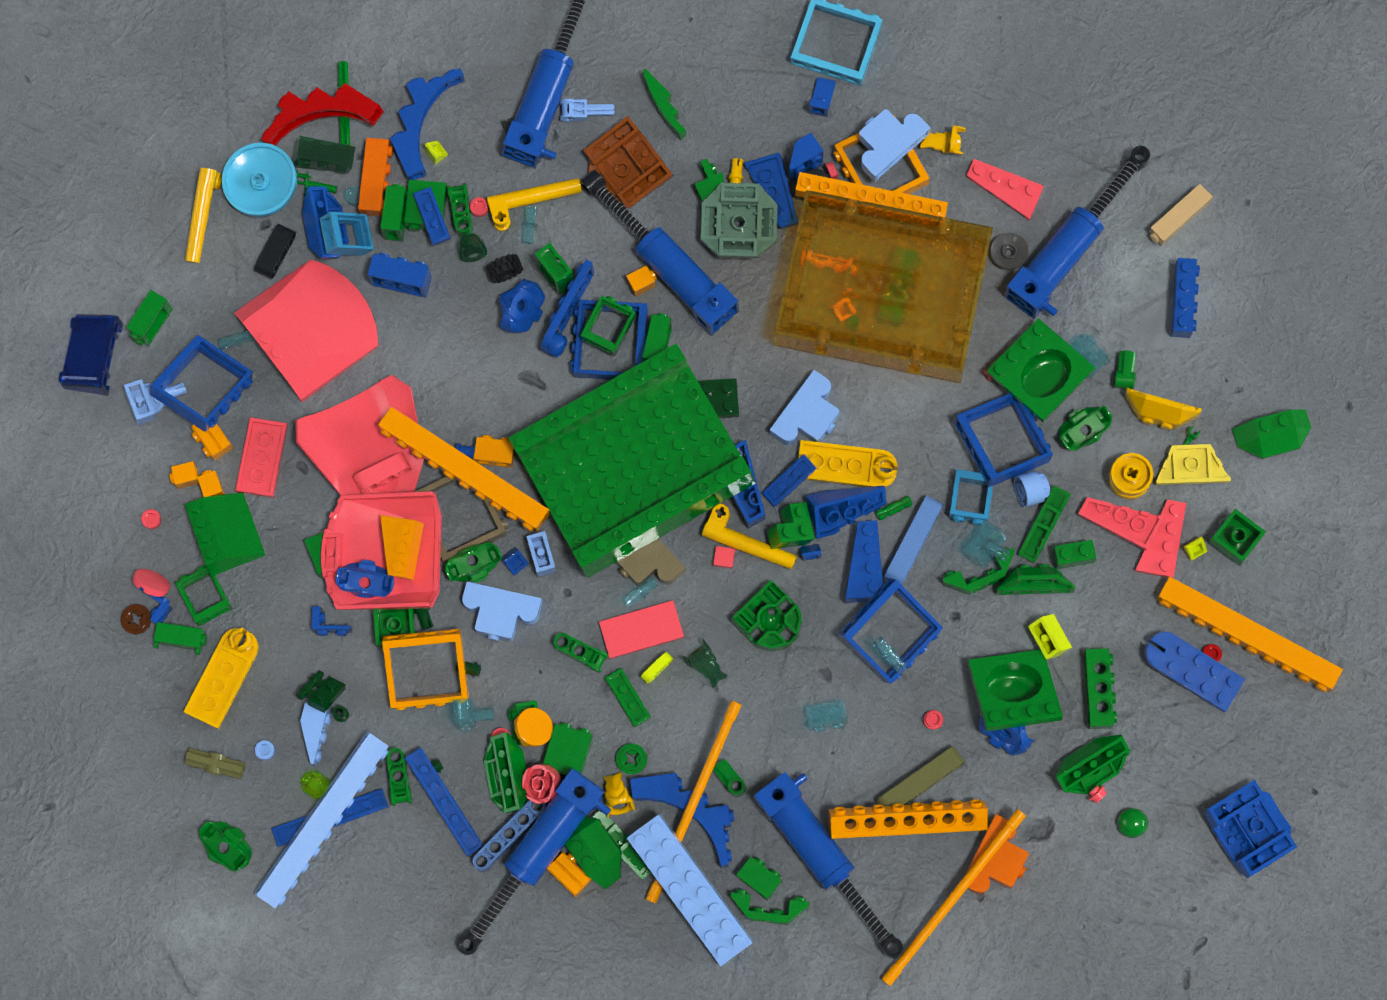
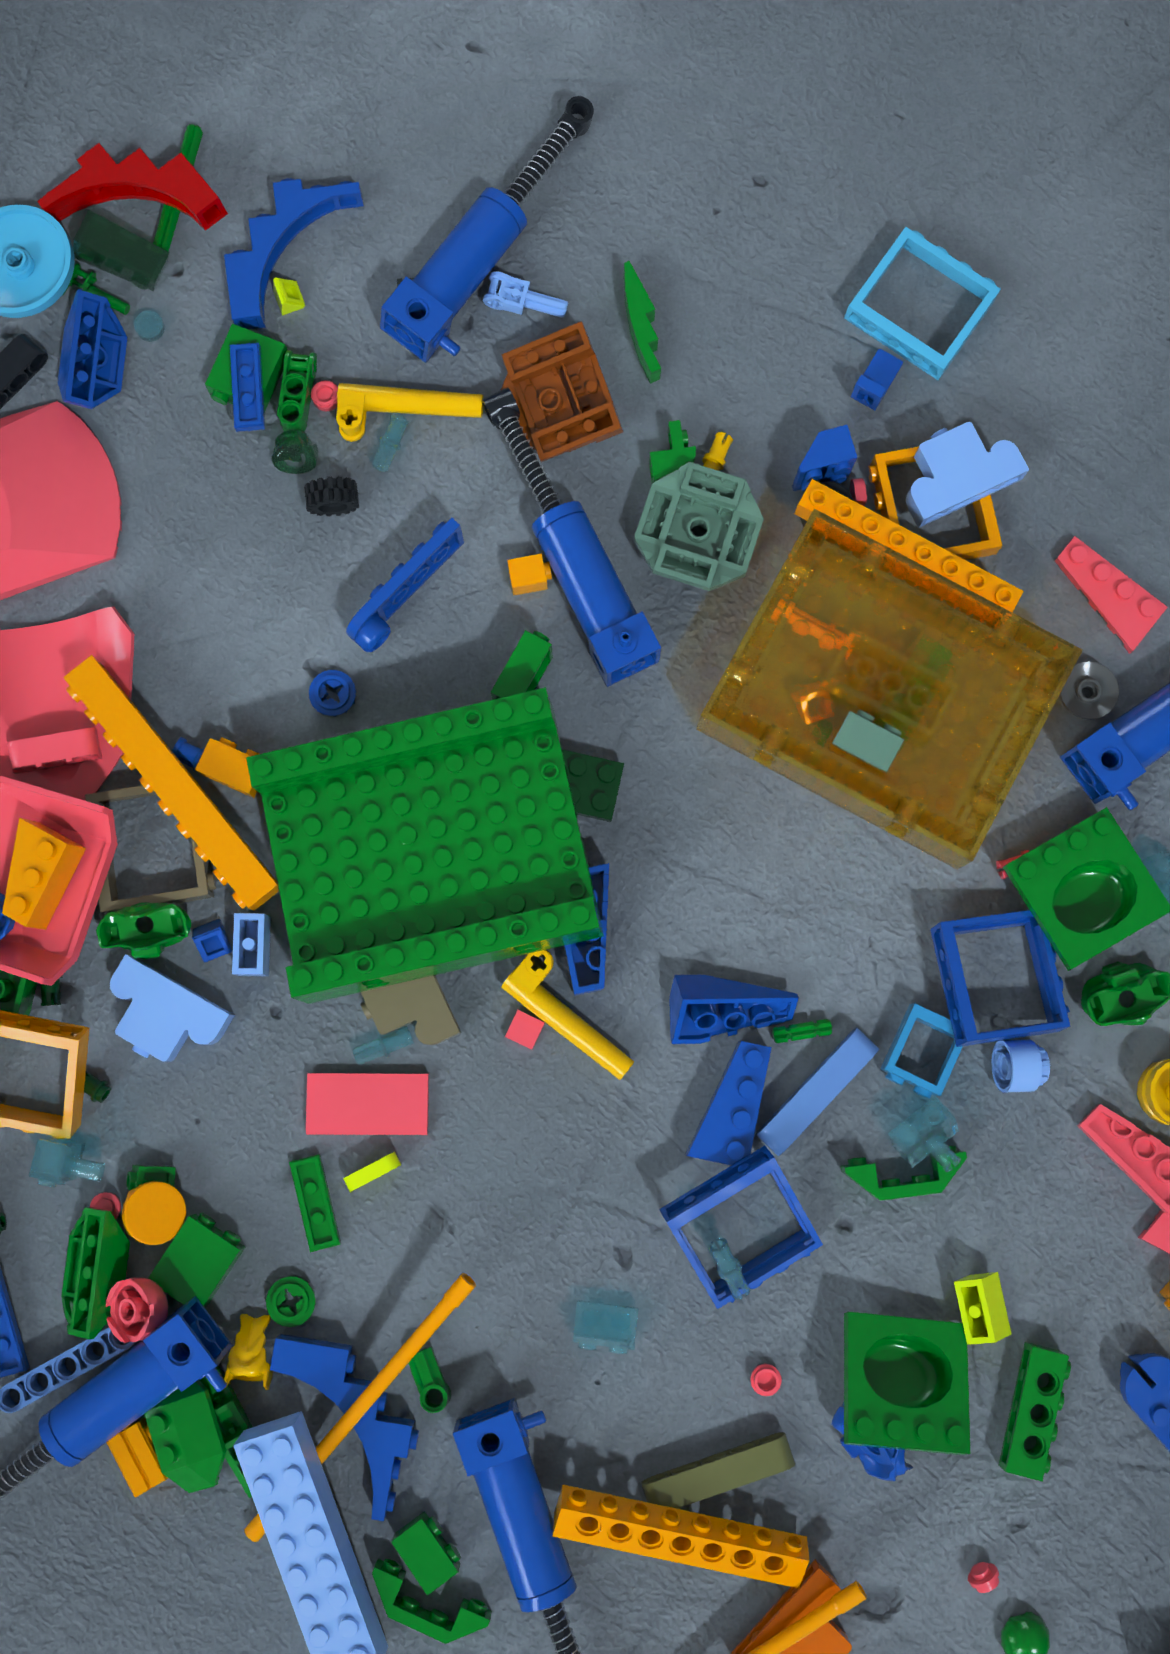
camera: 10 degrees right, 5 degrees up
(332, 235) = (87, 374): dark azure window -> none
(374, 176) = (185, 306): orange brick -> none
(394, 213) = (192, 365): green window -> none
(399, 275) = (173, 460): blue brick -> none
(520, 314) = (334, 576): blue piece -> none
(541, 380) = (335, 679): none -> blue gear
(556, 272) = (401, 515): green window -> none
(589, 305) = (414, 620): blue window -> none
(590, 656) = (278, 1120): green piece -> none
(600, 342) = (435, 649): green window -> none
(705, 662) = (446, 1188): clear green hair -> none
(749, 622) = (557, 1149): green connector -> none
(771, 175) = (768, 476): blue wing -> none
(789, 480) = (657, 943): blue tile -> none
(795, 528) = (646, 1020): green brick -> none
(807, 412) = (715, 846): light blue brick -> none
(810, 552) = (657, 1060): blue slope -> none
(849, 464) = (748, 943): yellow plate -> none
(880, 319) = (869, 741): none -> sand green brick
(946, 142) = (1041, 501): yellow hair -> none
(1035, 581) = (983, 1210): green wedge -> none
(1044, 523) = (1022, 1125): green slope -> none
(1074, 554) = (1056, 1188): green brick -> none
(1093, 764) = (991, 1529): green wedge -> none

